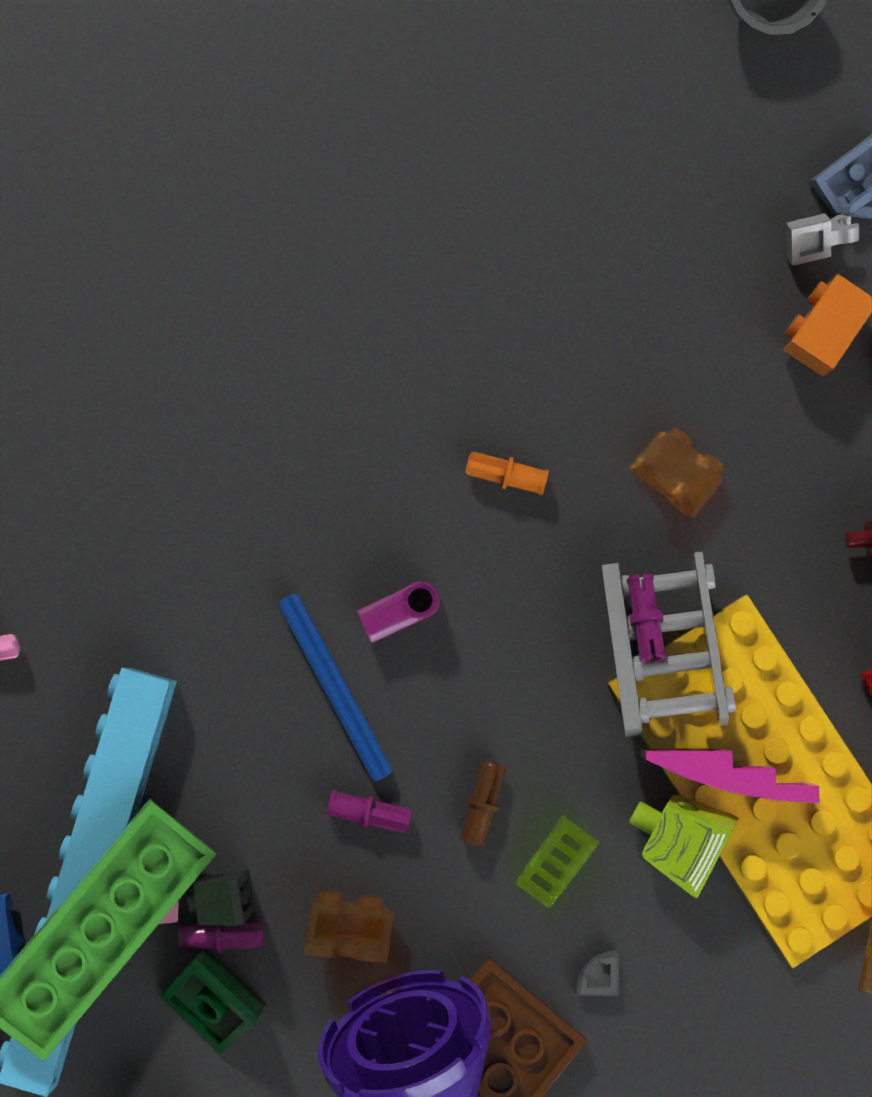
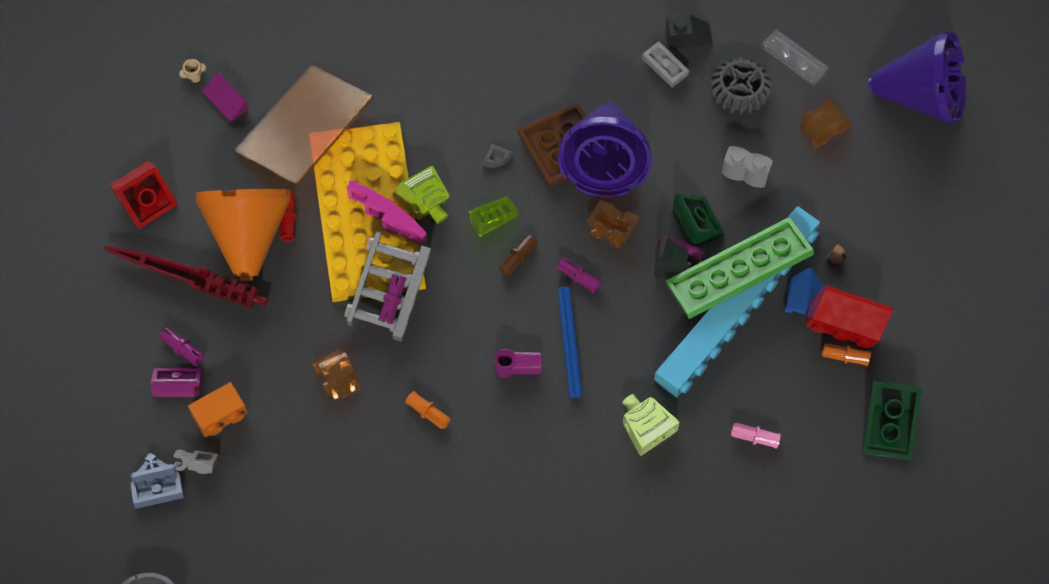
camera: 160 degrees left, 20 degrees down
(153, 596) = (647, 423): none -> yellowish green torso

